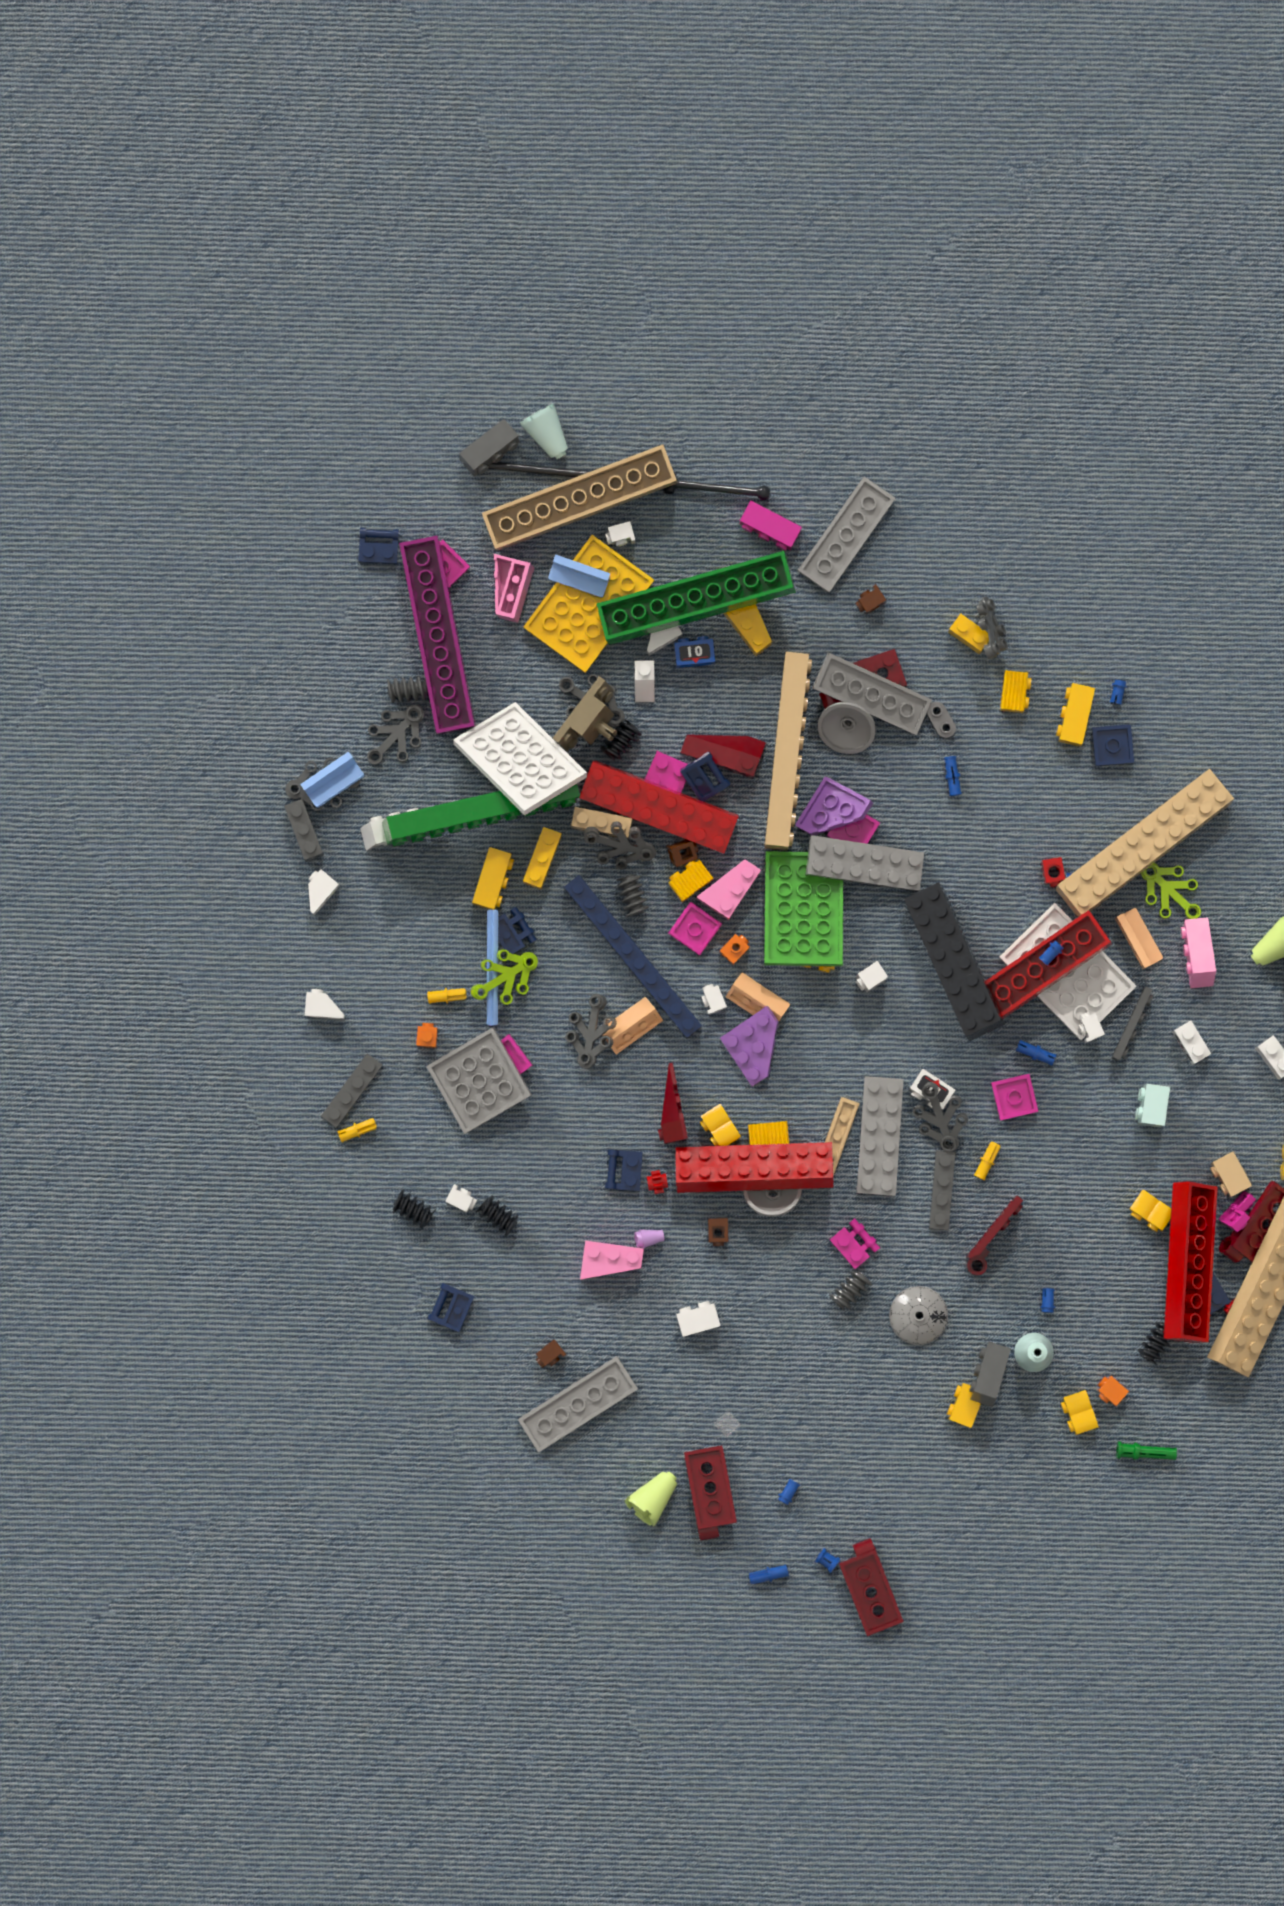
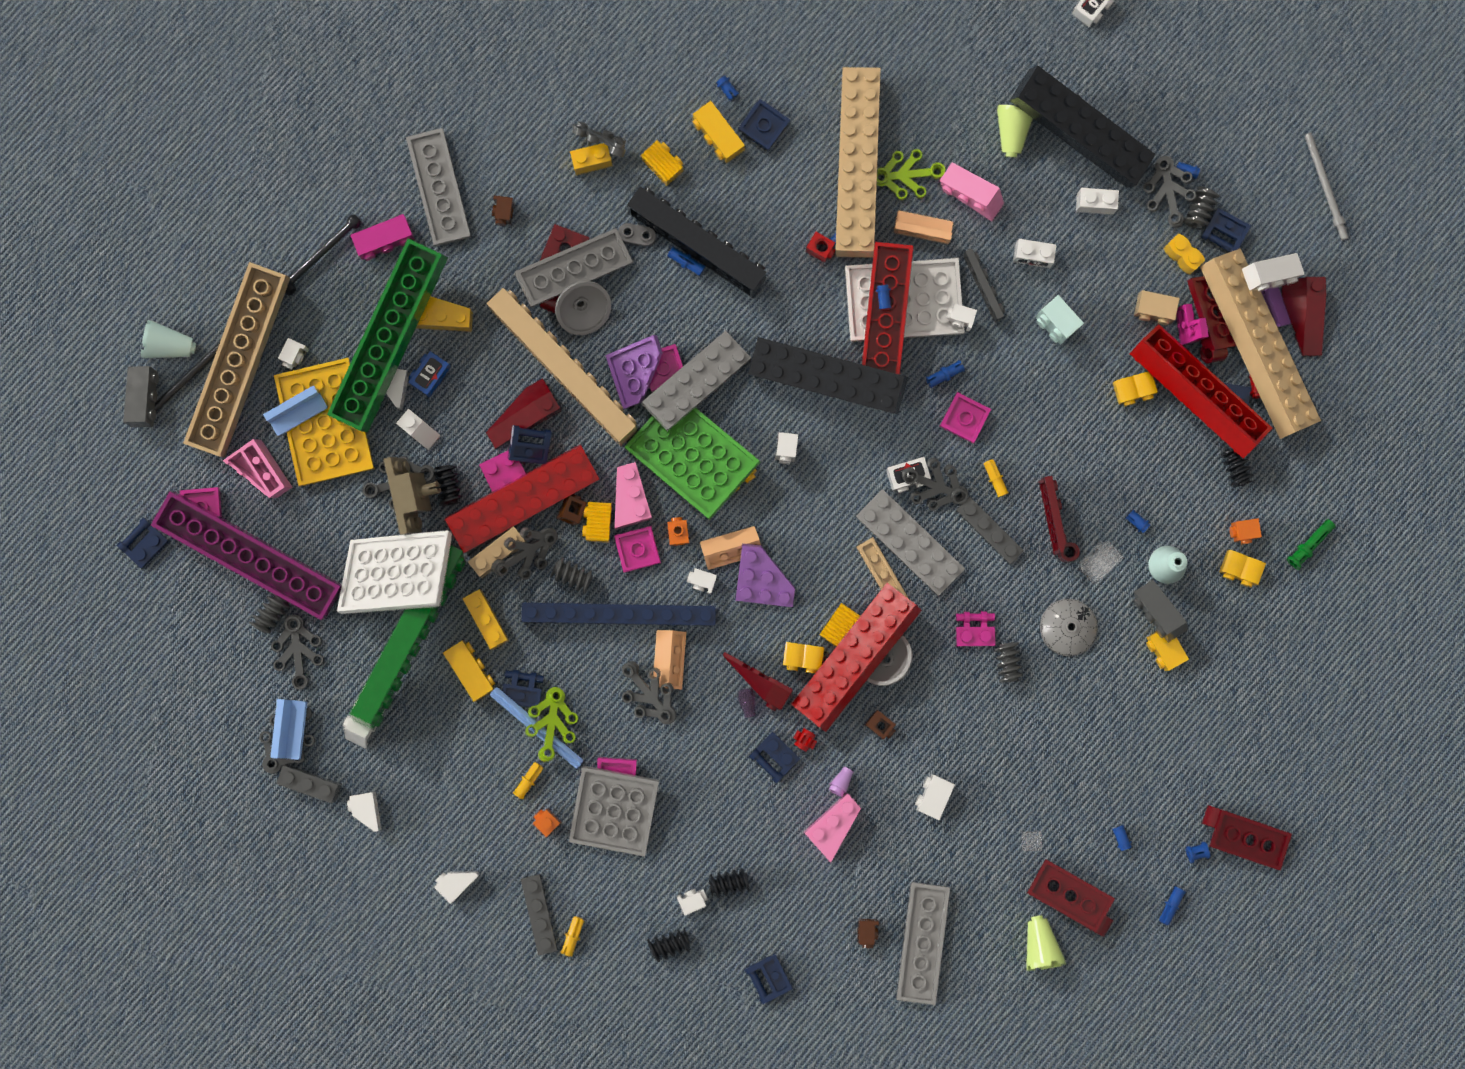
camera: 55 degrees left, 0 degrees up
(649, 1112) = (747, 701): none -> clear purple cone
(973, 771) = (697, 242): none -> black brick
(990, 1297) = (1100, 562): none -> clear brick

